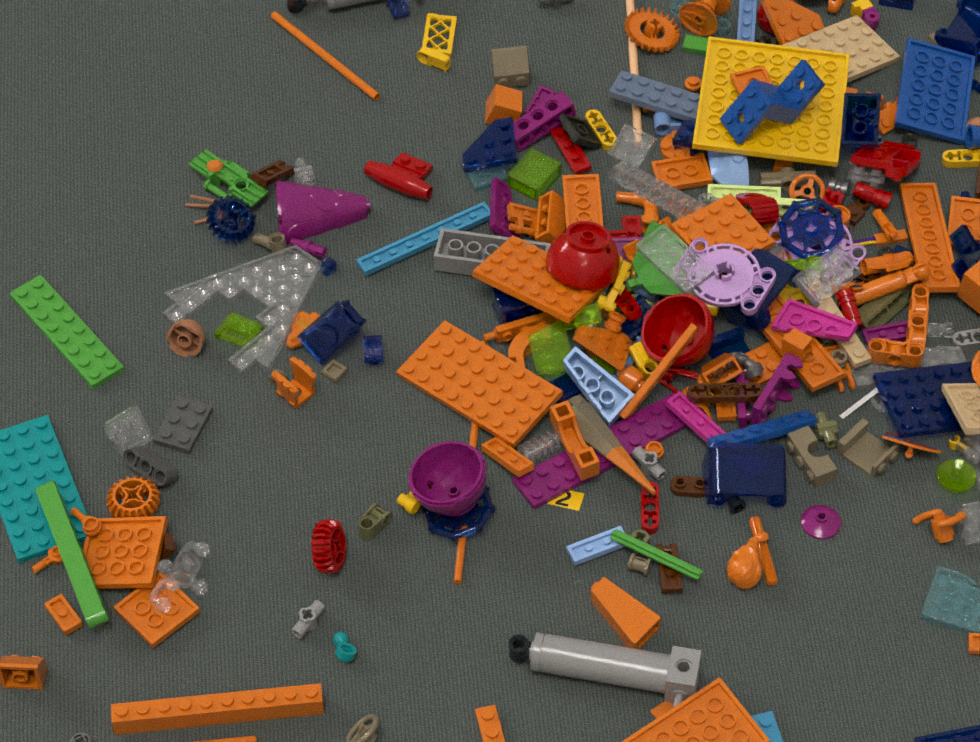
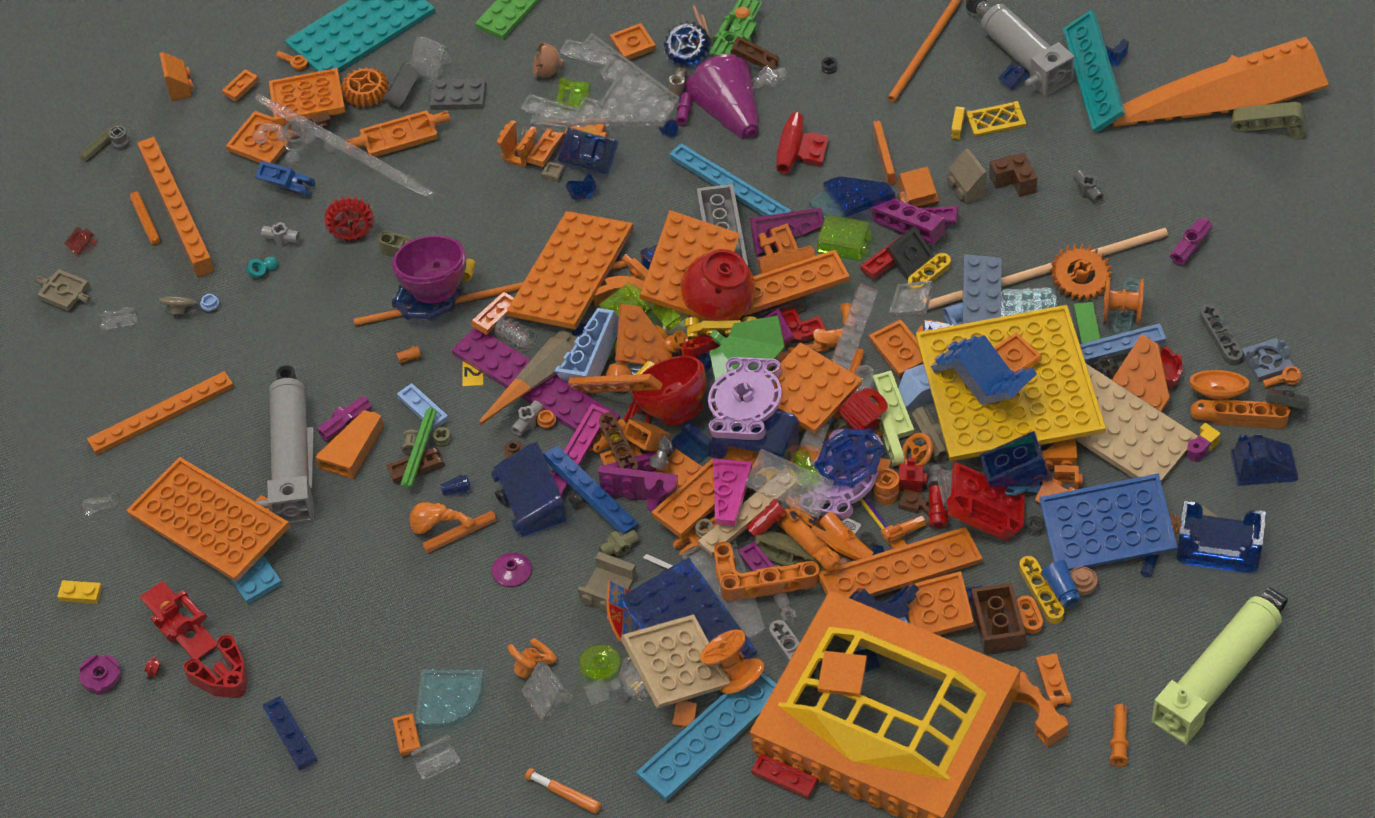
camera: 75 degrees right, 0 degrees up
(72, 554) = (290, 64): bright green beam -> none
(91, 525) = (325, 67): orange plate -> none
(194, 263) = (633, 41): none -> orange plate
(216, 484) = (400, 133): none -> orange plate
(218, 531) = (346, 147): none -> clear axle
(232, 597) = (284, 178): none -> blue plate
(309, 124) = (829, 61): none -> black bush
(321, 373) = (545, 147): none -> orange plate
(371, 705) = (209, 302): none -> light blue plate
(445, 119) = (884, 153): none -> orange tile
(520, 34) = (1016, 171): none -> reddish brown brick
(524, 543) = (409, 354): none -> orange pin
(581, 455) = (535, 337): orange arch -> none
(585, 614) = (342, 418): none -> magenta piece
(645, 514) = (475, 441): red beam -> none
(674, 259) = (740, 349): clear plate -> none
(677, 71) = (1026, 300): none -> clear light blue plate
(708, 538) = (456, 485): none -> clear blue cone
(797, 344) = (690, 481): orange brick -> none
(816, 469) = (590, 528): dark tan arch -> none

